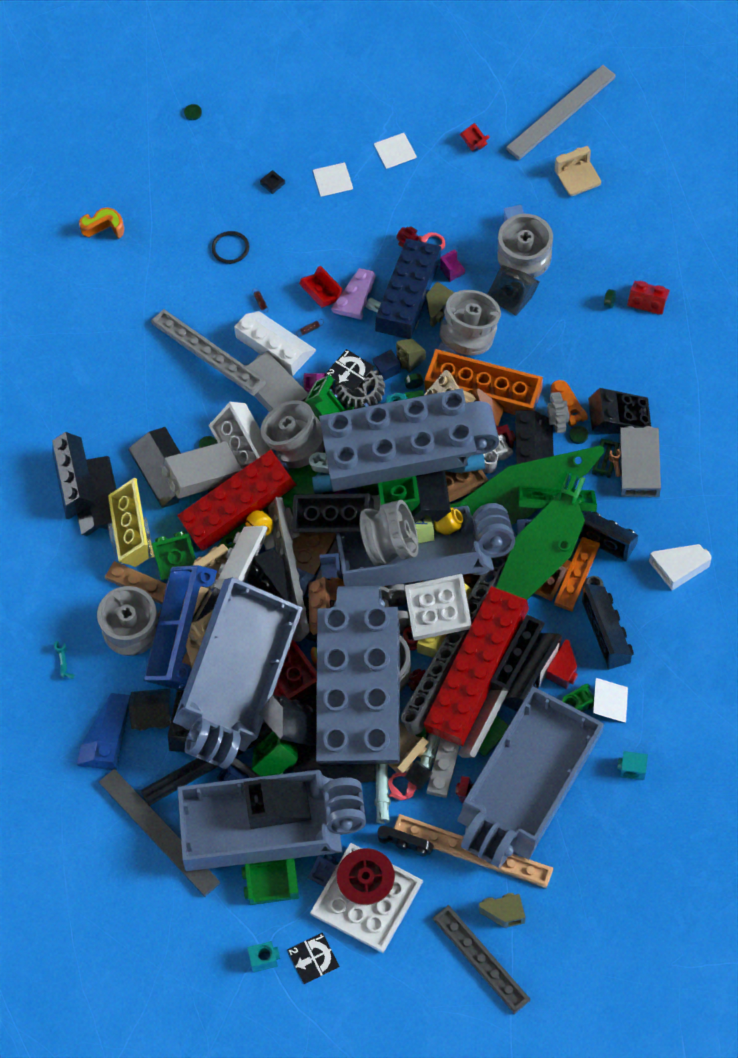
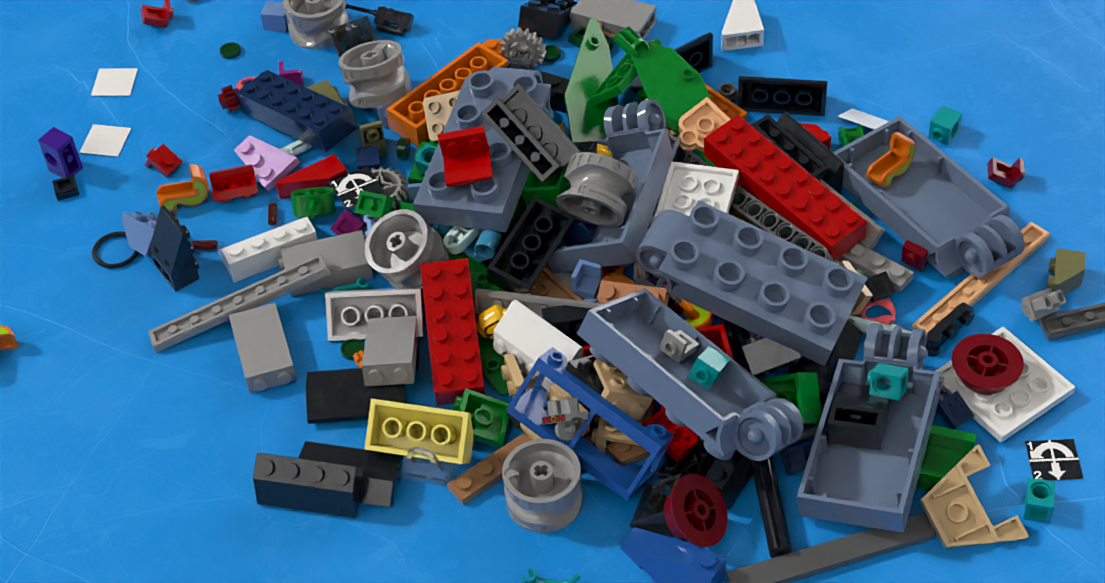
camera: 65 degrees left, 15 degrees down
(140, 728) = (696, 511): none -> dark red piece
(172, 606) = (564, 414): none -> light grey hips
(178, 387) = (262, 348): none -> light grey brick
(224, 902) = (958, 512): none -> tan wing
(230, 287) = (172, 251): none -> black slope
(249, 260) = (139, 230): none -> medium blue slope
(253, 681) = (708, 368): none -> teal brick
(254, 408) = (360, 285): none -> teal piece
(261, 653) = (678, 345): none -> light grey bracket
(291, 160) = (60, 153): none -> dark purple brick
(299, 261) = (185, 193): none -> orange animal
(304, 811) = (895, 374): none -> teal brick
(325, 228) = (163, 160): none -> red bracket
(325, 347) = (313, 202): none -> green beam
(354, 338) = (312, 176): none -> red slope
(358, 430) = (465, 156): none -> red bracket
(408, 461) = (530, 132): none -> black slope
(456, 900) = (1042, 303): none -> light grey hips
(466, 208) = (230, 50): none -> dark green piece
(517, 579) = (699, 123): none -> light nougat plate
(549, 736) = (893, 162): none -> orange animal
(555, 298) = (387, 16): none -> black piece
(599, 829) = (1005, 173): none -> dark red bracket

